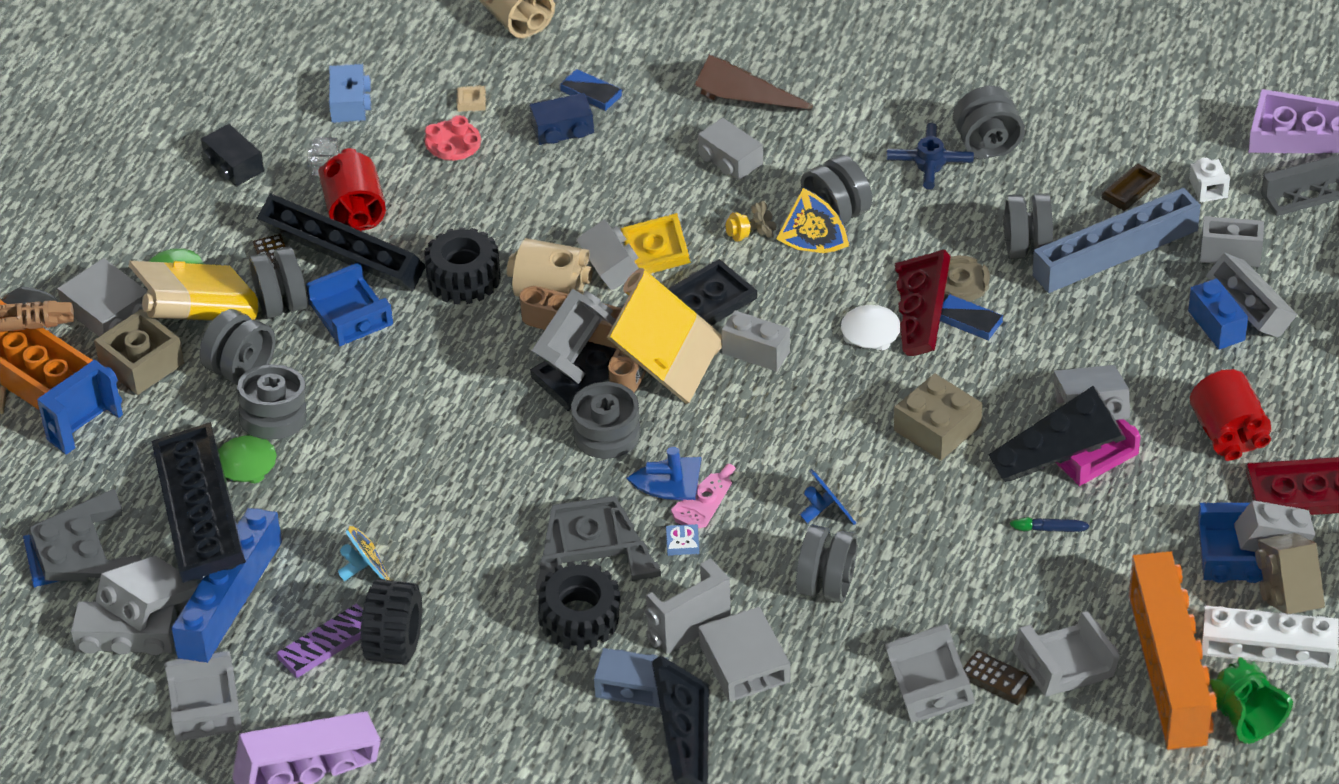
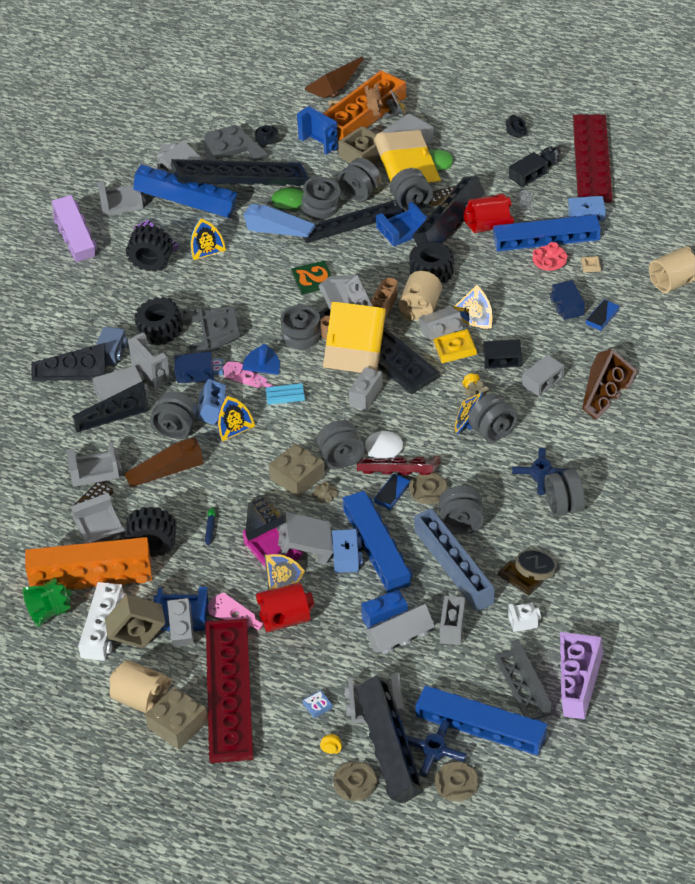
camera: 90 degrees right, 0 degrees up
(61, 488) = (266, 134): none -> black plate
(114, 166) = (516, 126): none -> black plate
(199, 124) = (551, 154): none -> black plate
(207, 88) = (592, 156): none -> dark red plate
(318, 465) = (271, 220): none -> medium blue wedge
(328, 373) = (352, 220): none -> black plate
(397, 139) = (546, 231): none -> blue brick
(465, 420) = (310, 276): none -> tile
(578, 213) = (475, 309): none -> shield
(679, 190) = (502, 354): none -> black brick
(694, 545) = (194, 367): none -> dark blue brick
(749, 428) = (285, 393): none -> medium azure tile
(769, 521) = (210, 401): none -> medium blue brick
(801, 656) = (117, 407): none -> black wing
(894, 357) = (340, 444): none -> dark grey wheel
(904, 576) = (168, 461): none -> reddish brown wedge
(975, 389) = (324, 492): none -> dark tan plant
(1079, 327) = (377, 542): none -> blue brick
(1098, 571) = (156, 526): none -> black tyre
(1103, 352) = (346, 551): none -> medium blue brick
(1112, 165) = (535, 564): none -> tile
(1156, 436) = (281, 571): none -> shield
(1235, 473) = (228, 607): none -> bright pink piece

